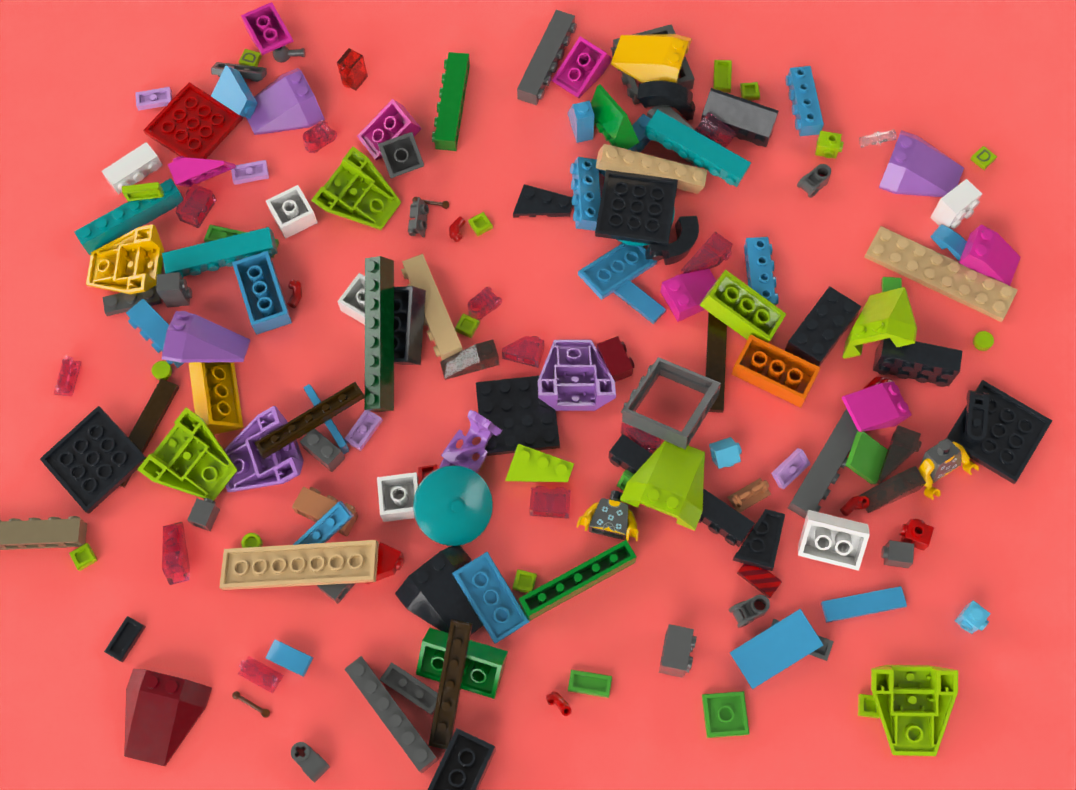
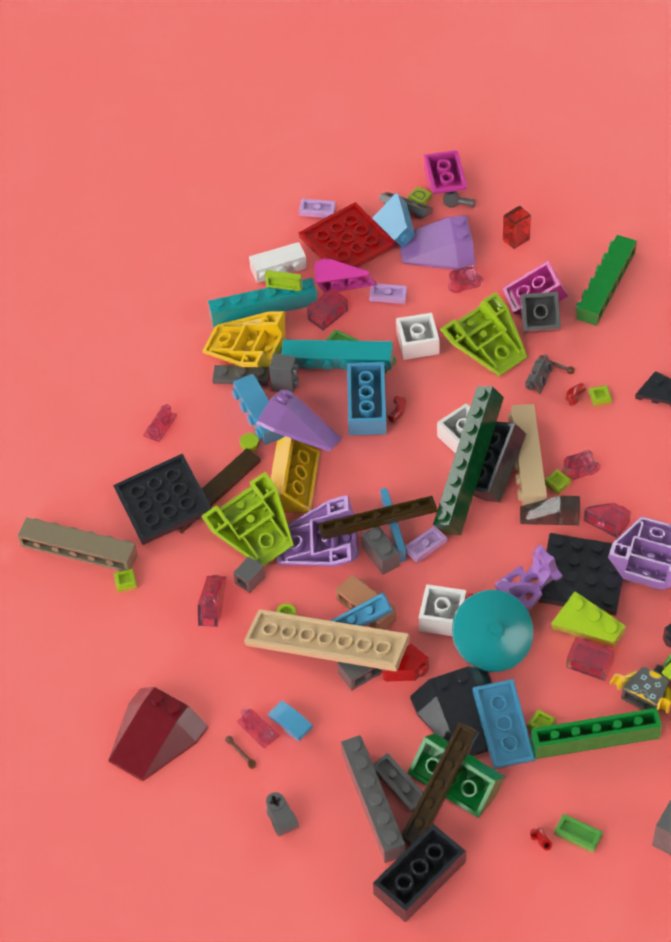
camera: 20 degrees right, 15 degrees down
(124, 639) = (141, 661): black tile -> none

